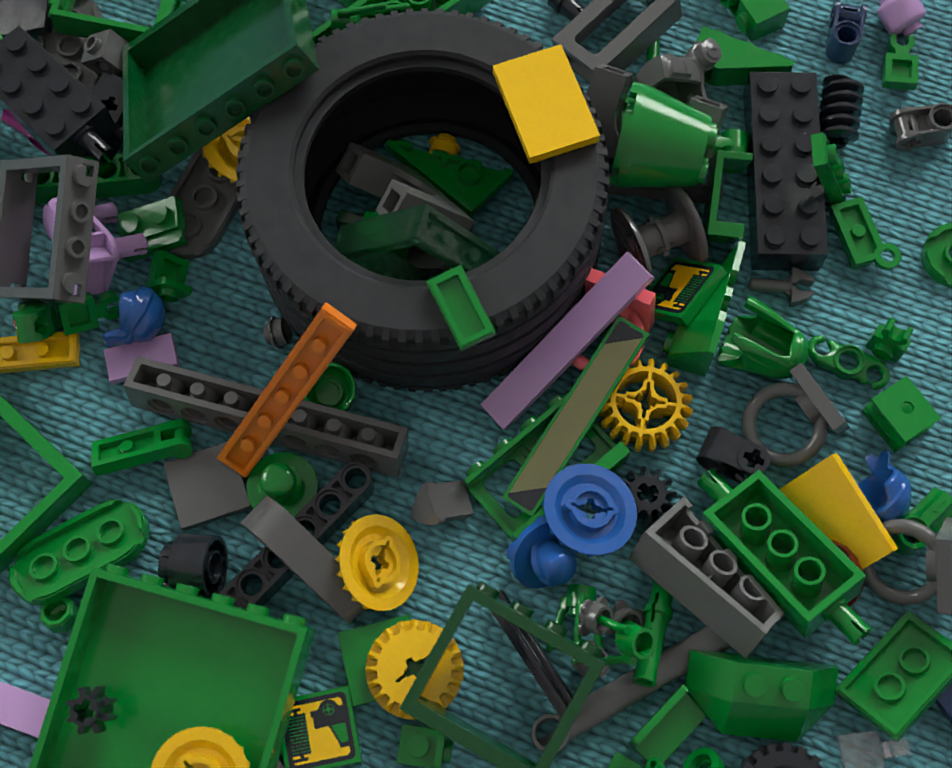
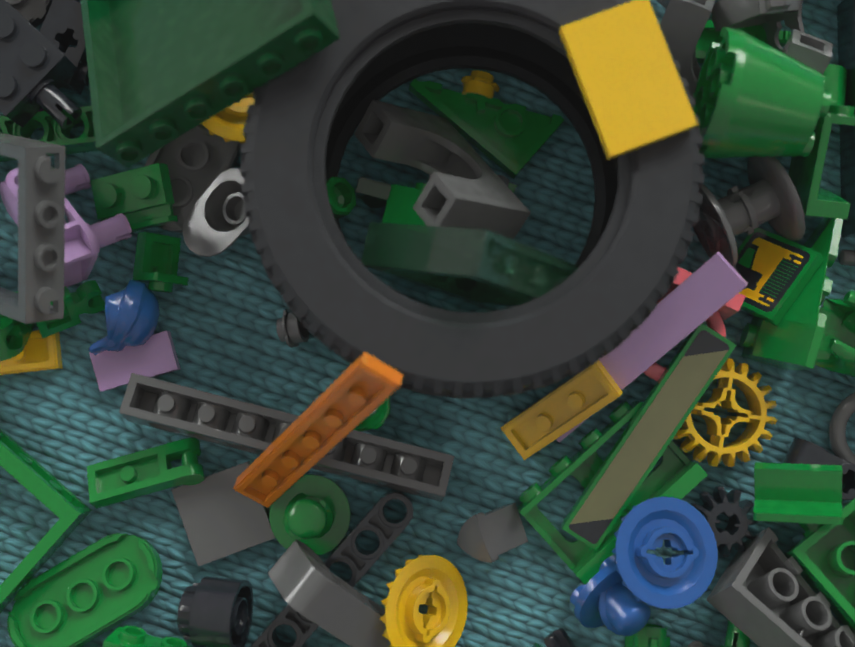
camera: 10 degrees left, 15 degrees up
(221, 240) = (217, 216): none -> dark grey piece
(324, 221) = (340, 196): none -> green tile
(461, 308) = (529, 355): green tile -> none
(503, 397) = (561, 410): none -> yellow tile
(708, 461) = (798, 493): none -> green panel

